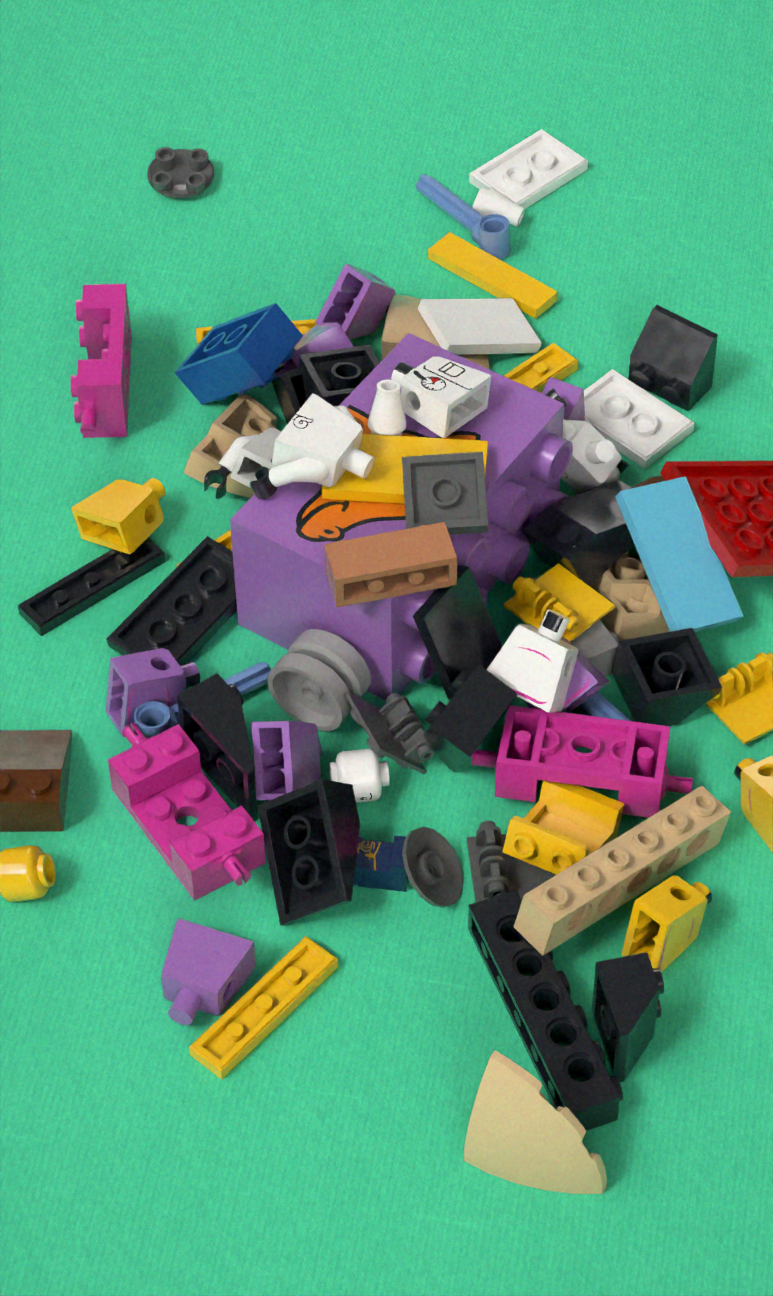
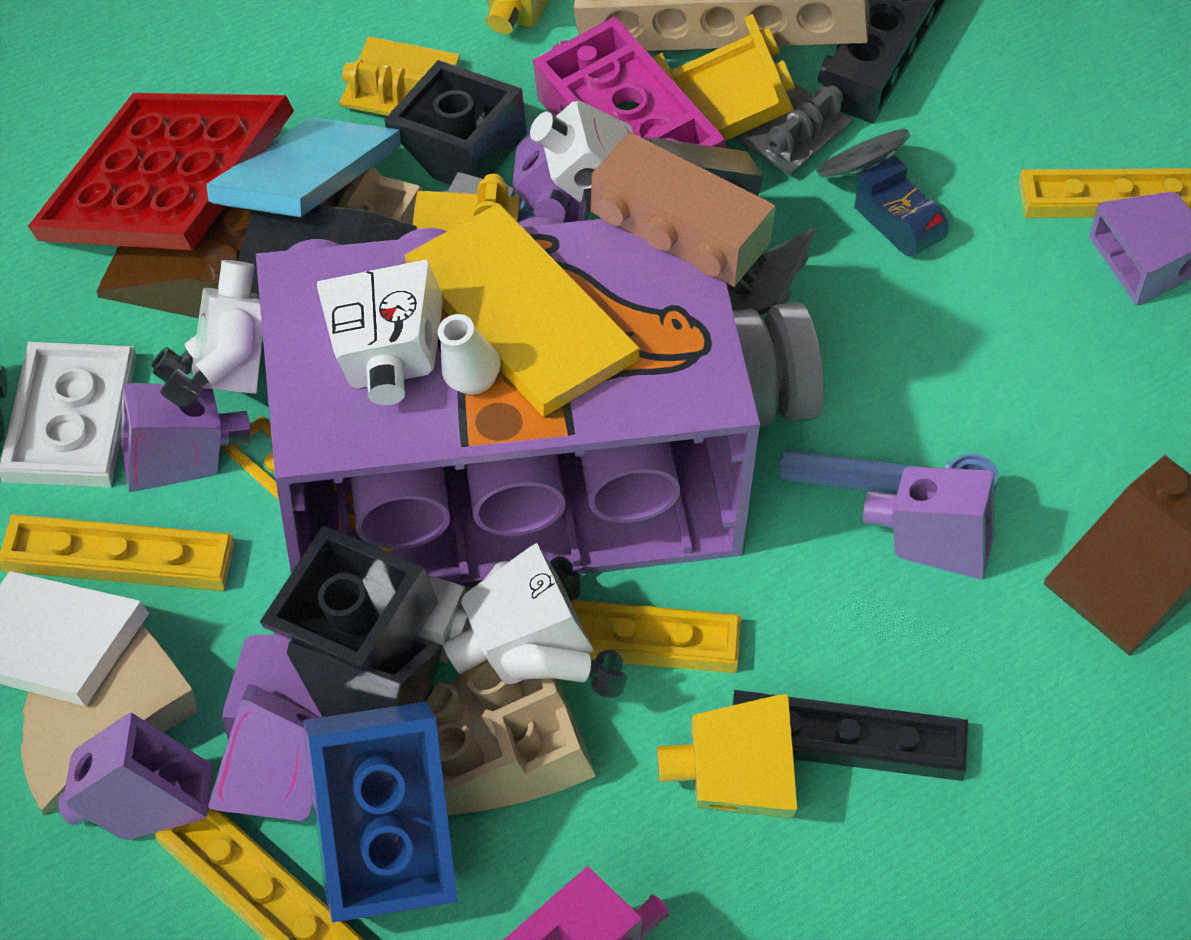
camera: 135 degrees left, 5 degrees up
(164, 782) = (1035, 339): dark pink brick -> none
(183, 607) = (788, 595): black tile -> none
(216, 725) = (927, 390): black slope -> none
(284, 756) = (887, 322): medium lavender torso -> none
(311, 848) = (955, 235): black slope -> none
(315, 448) = (602, 361): white torso -> none
(362, 771) = (831, 281): white head -> none
(447, 491) = (540, 215): dark grey plate -> none

